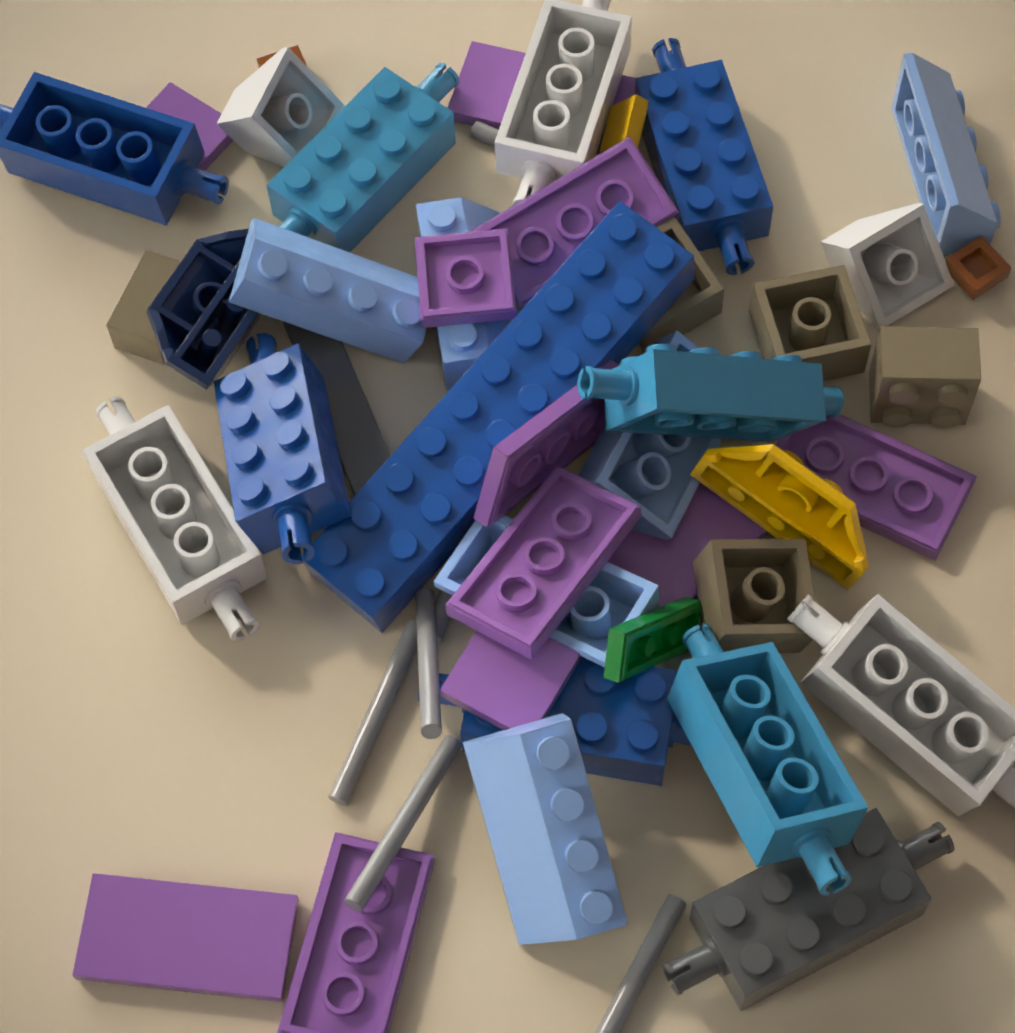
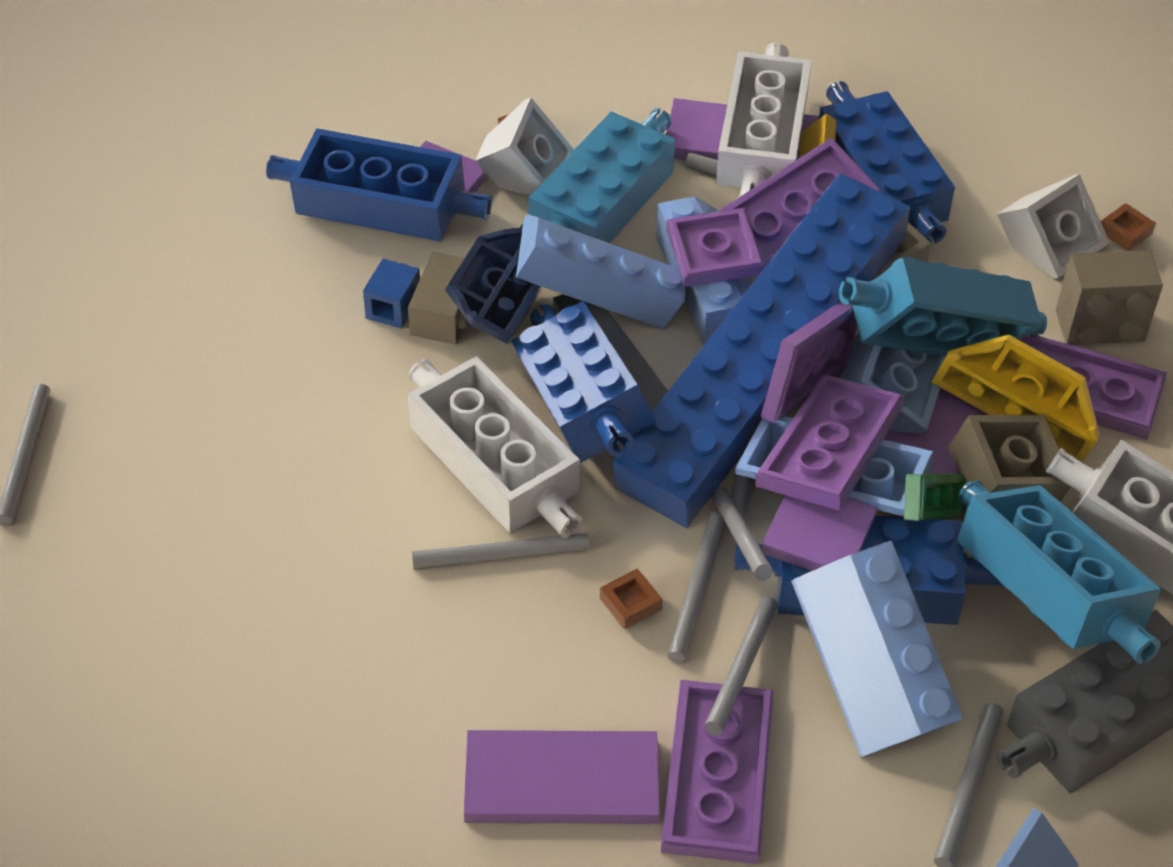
camera: 10 degrees left, 15 degrees down
(94, 294) = (390, 292): none -> blue brick
(166, 646) = (499, 550): none -> light grey bar
(298, 724) = (631, 598): none -> dark orange plate
(812, 318) = (1010, 252): dark tan brick -> none
(943, 155) = (1077, 146): light blue slope -> none

